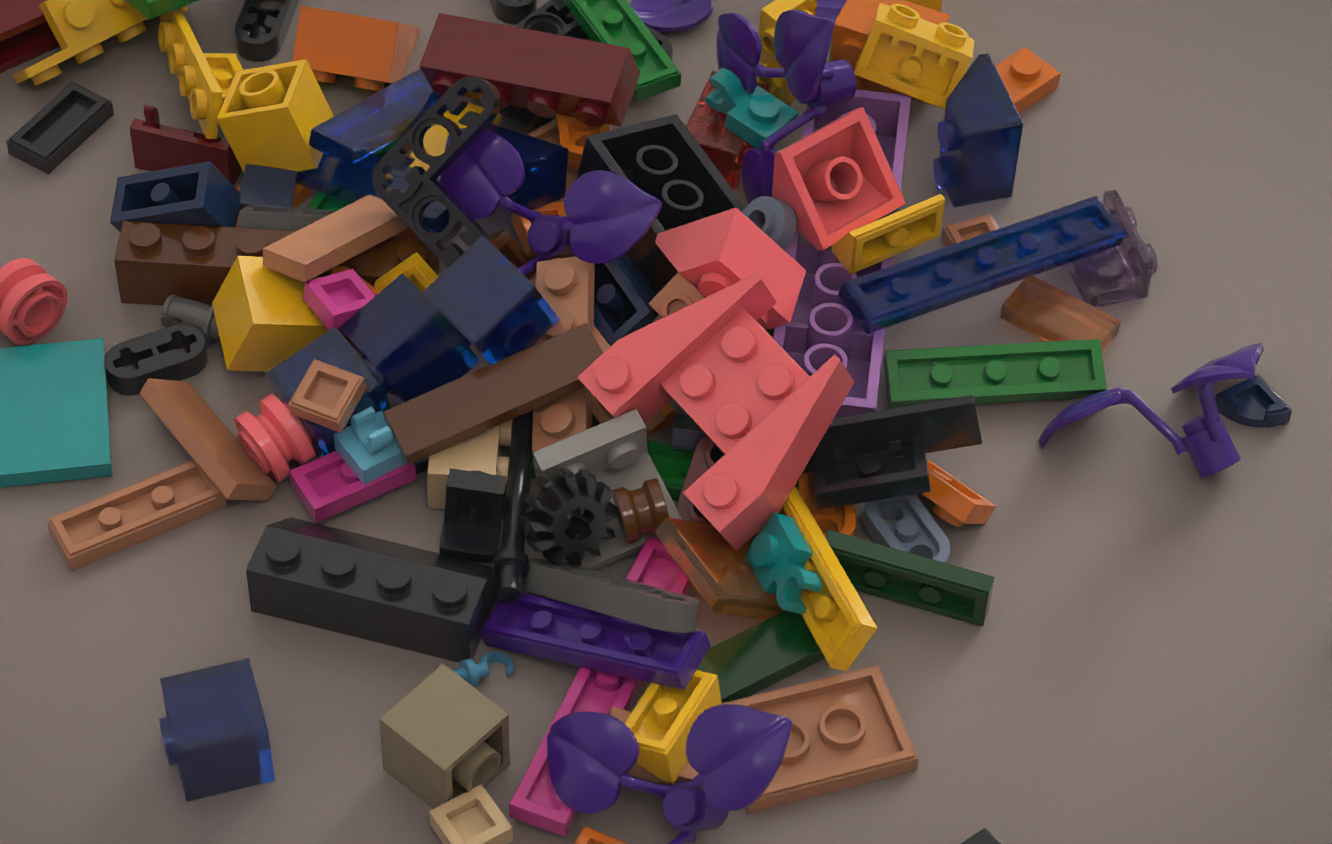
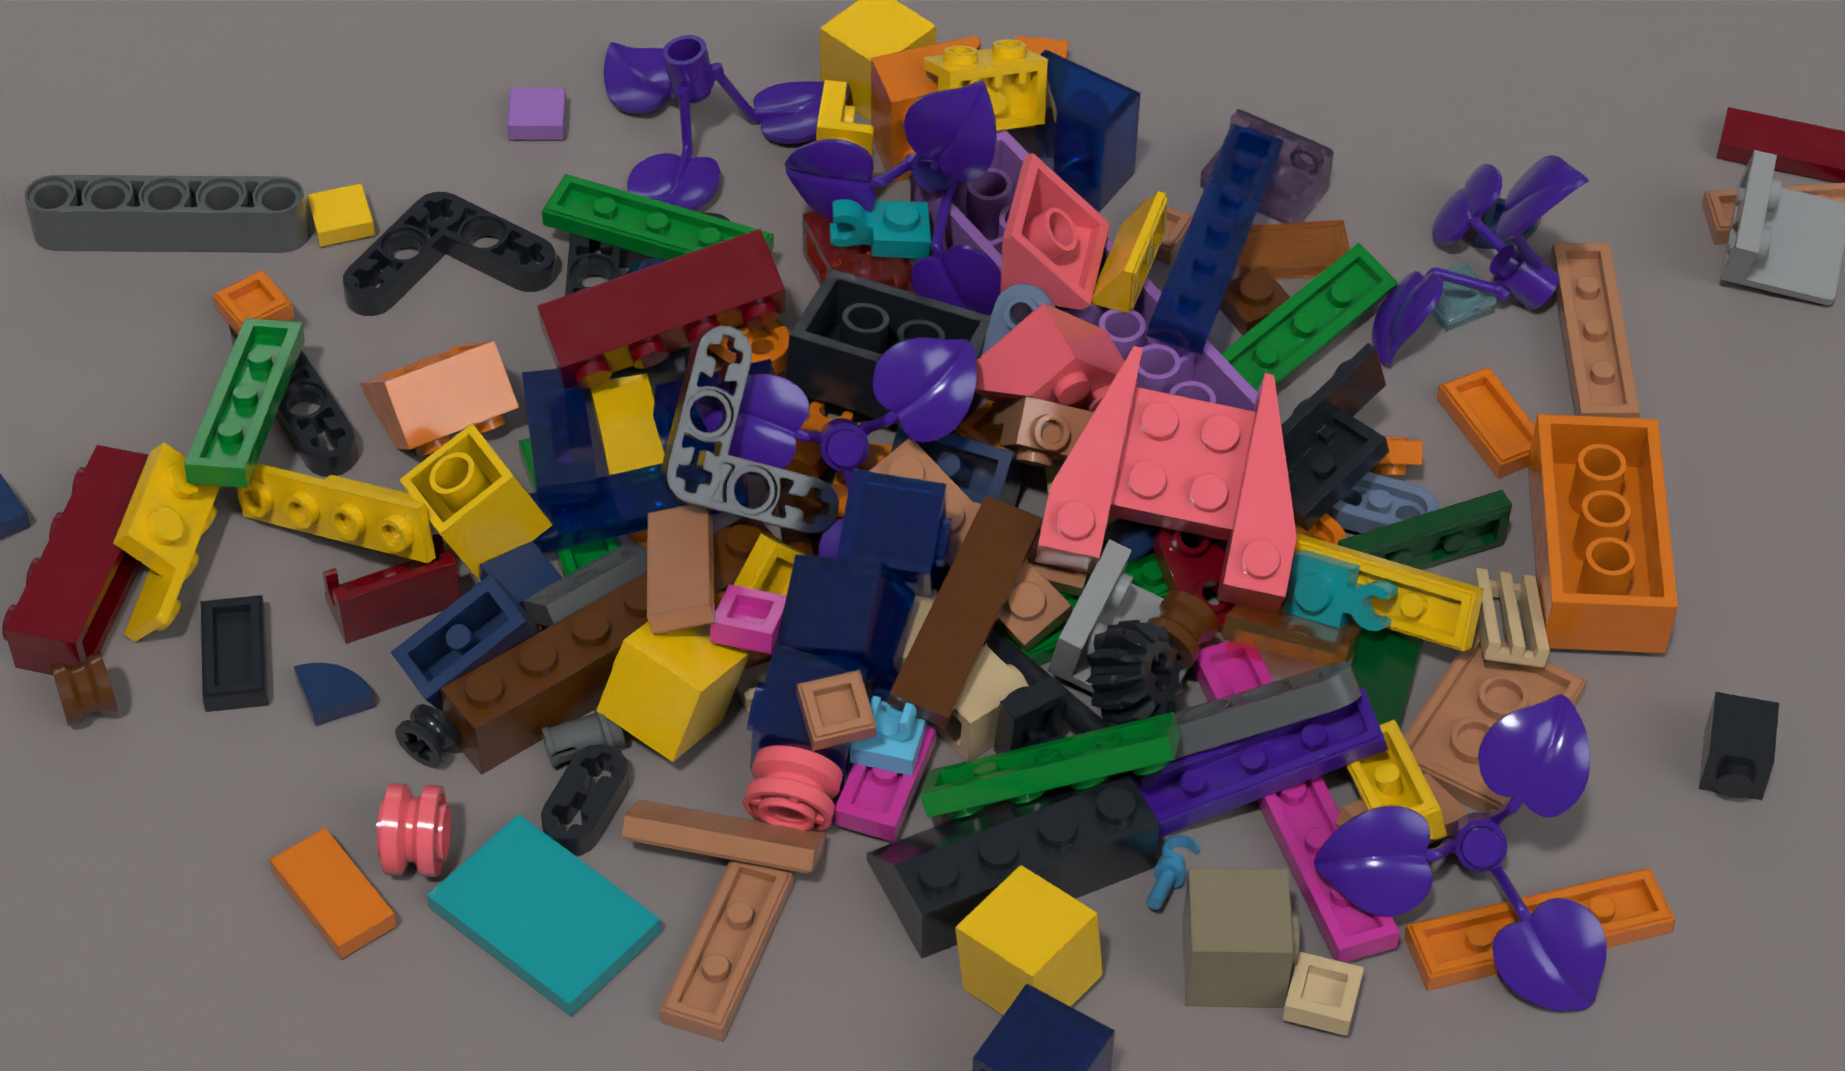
camera: 40 degrees left, 0 degrees up
(85, 189) = (332, 691): none -> dark blue tile
(103, 250) = (427, 735): none -> black bush
(297, 647) = (1031, 937): none -> yellow head
(456, 541) = (1031, 770): none -> green plate
(930, 652) = (1531, 614): none -> tan tile
(989, 327) = (1252, 299): none -> reddish brown plate
(1039, 660) = (1602, 533): none -> orange brick
(1071, 536) = (1489, 420): none -> orange tile
(1143, 439) = (1462, 304): none -> clear light blue tile
(1220, 524) = (1594, 331): none -> nougat plate

